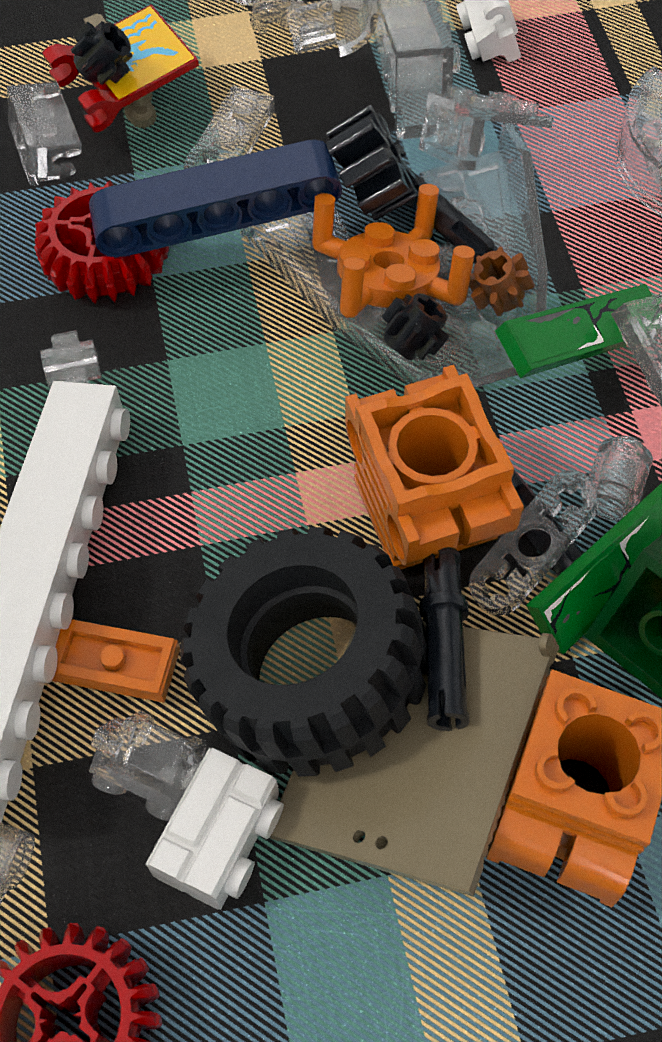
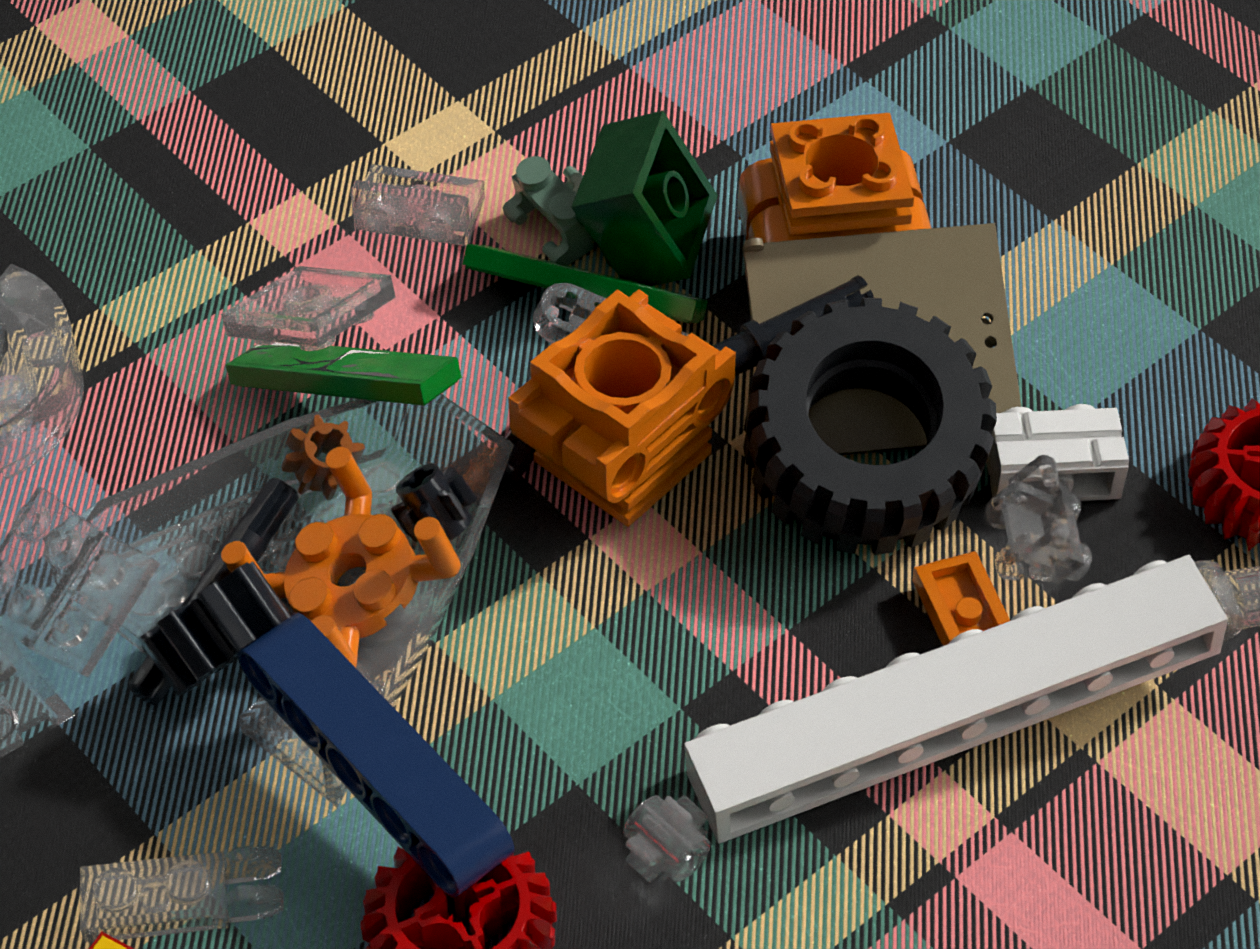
camera: 120 degrees left, 10 degrees down
(620, 475) = (494, 313): clear brick -> none

